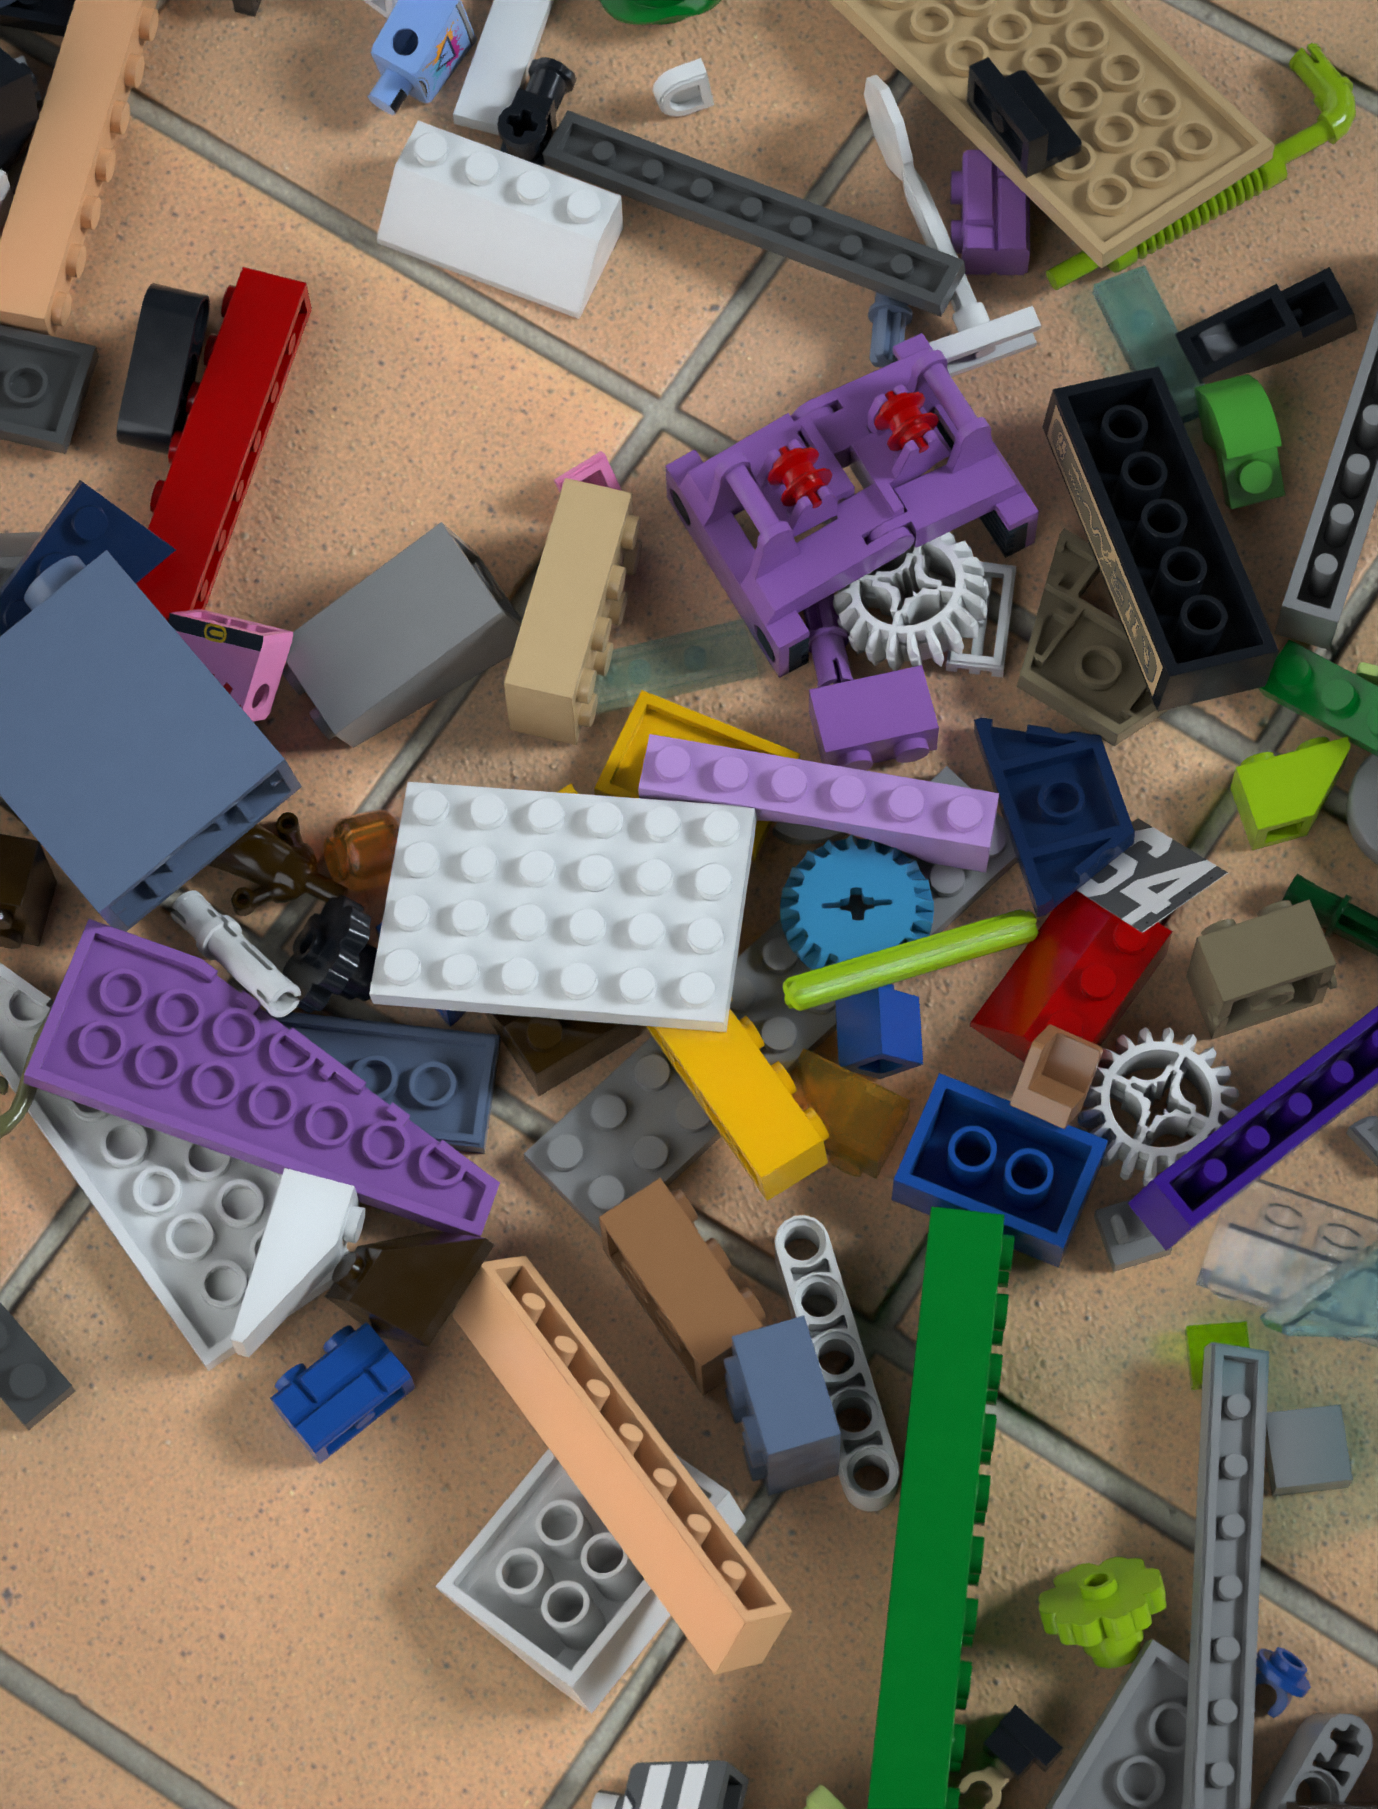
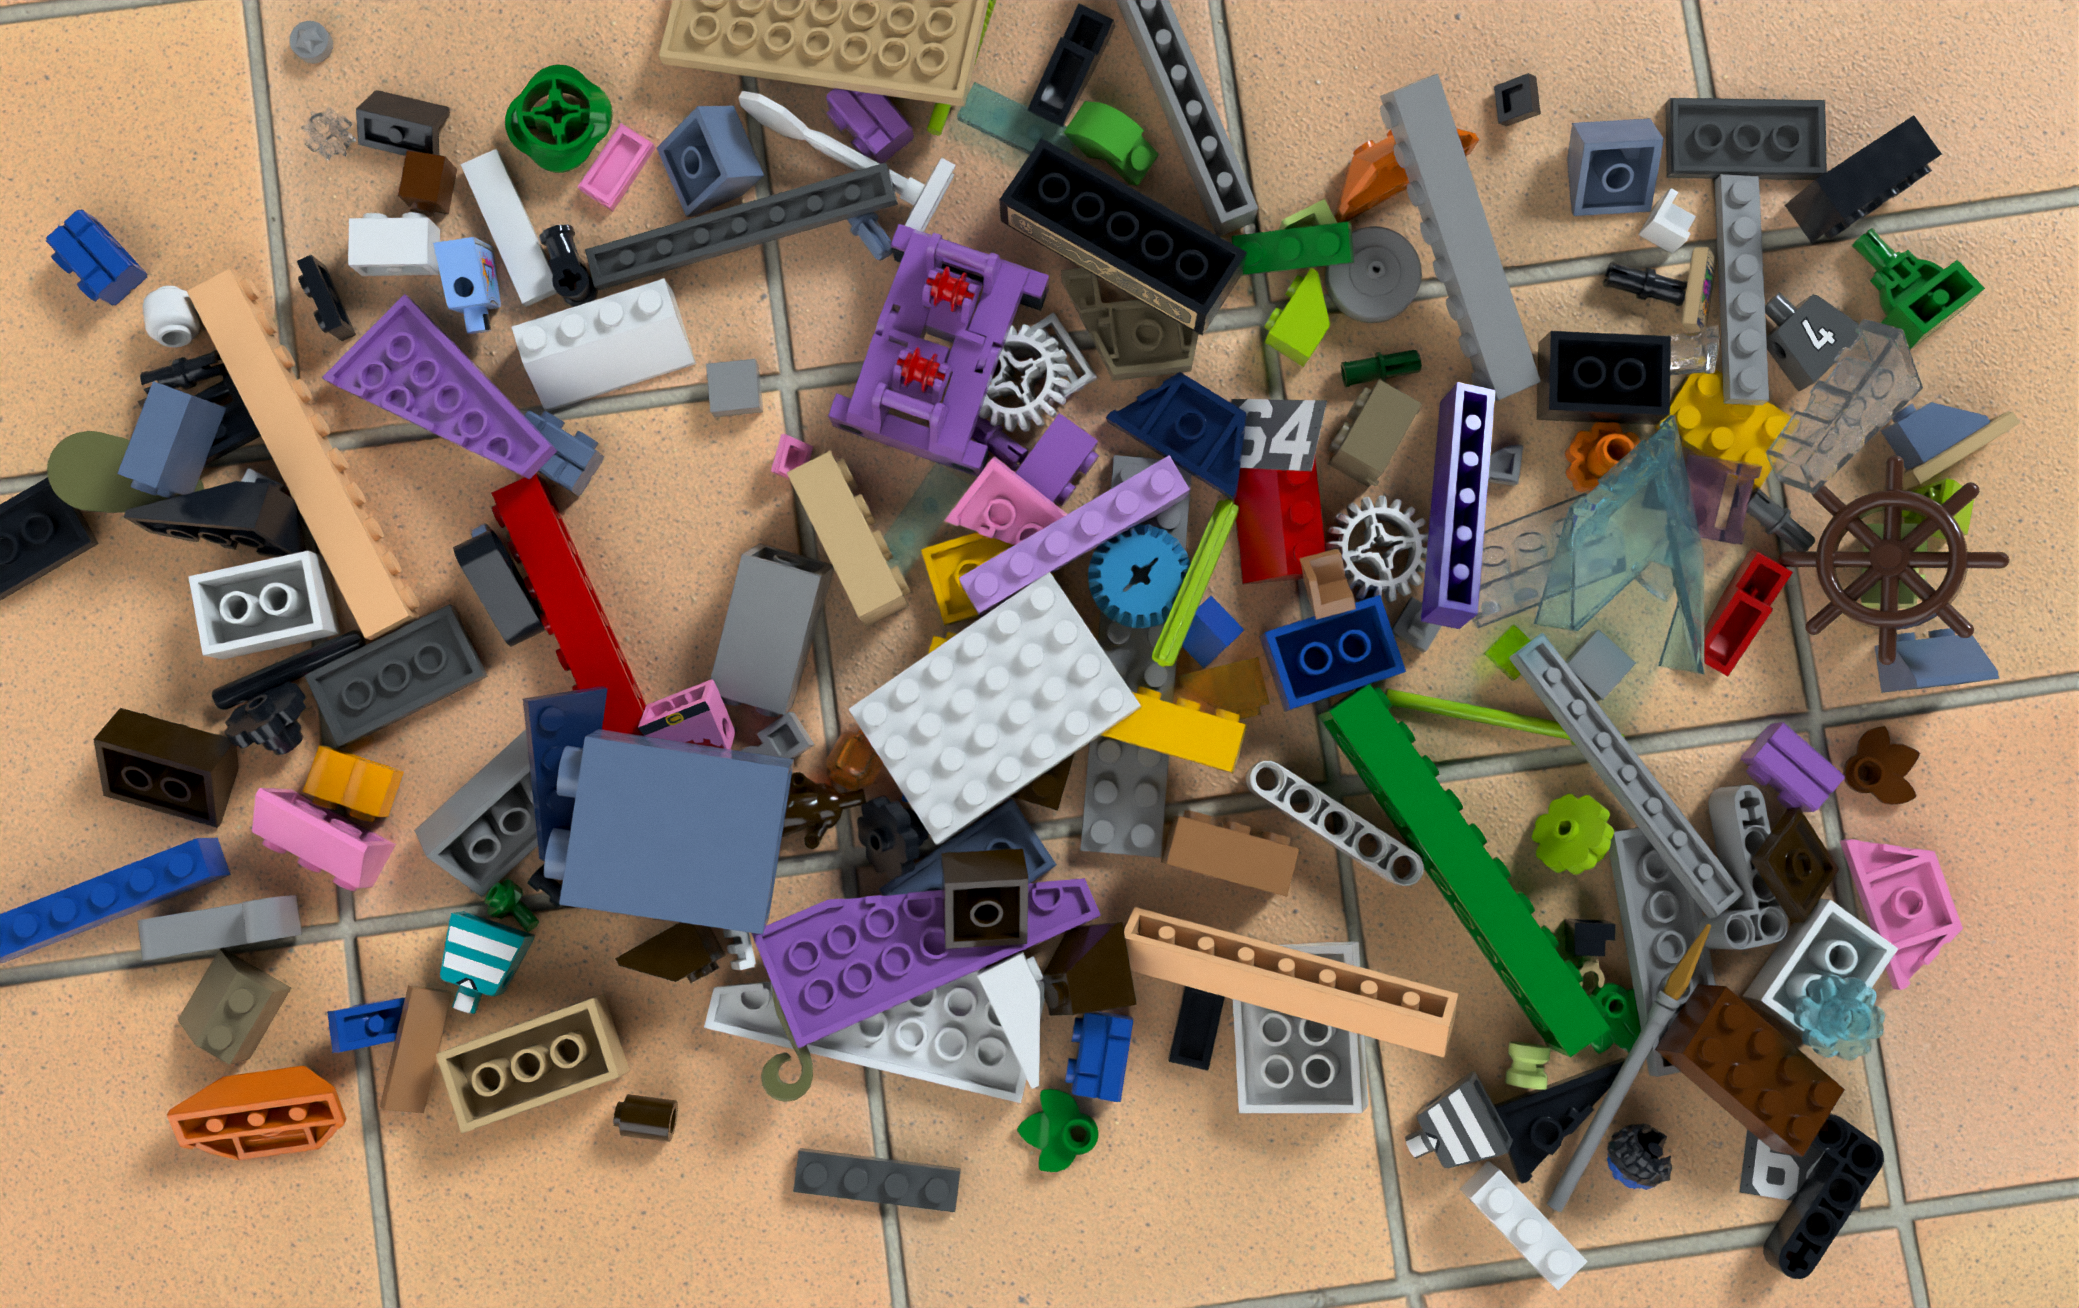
camera: 45 degrees left, 15 degrees up
(61, 933) = (742, 947): none -> white tile
(215, 1433) = (1052, 1128): none -> green plate
(222, 940) = (824, 876): white pin -> none
(285, 115) = (427, 380): none -> medium lavender wing
(317, 766) = (783, 738): none -> light grey plate
(346, 284) = (576, 455): none -> sand blue brick
(367, 1096) = (984, 898): none -> dark brown slope
(478, 1459) = (1196, 1028): none -> black tile
(596, 371) = (734, 388): none -> light grey piece
(651, 57) = (616, 167): none -> bright pink tile
(683, 89) = (637, 184): white tile -> none
(770, 706) = (1004, 506): none -> bright pink wing
(783, 1406) = (1344, 877): sand blue brick -> none
(784, 123) = (709, 159): none -> sand blue slope
(1020, 118) = (847, 52): black panel -> none
(1112, 1384) = (1476, 713): none -> lime bar
(1284, 1673) = (1683, 789): blue plate -> none

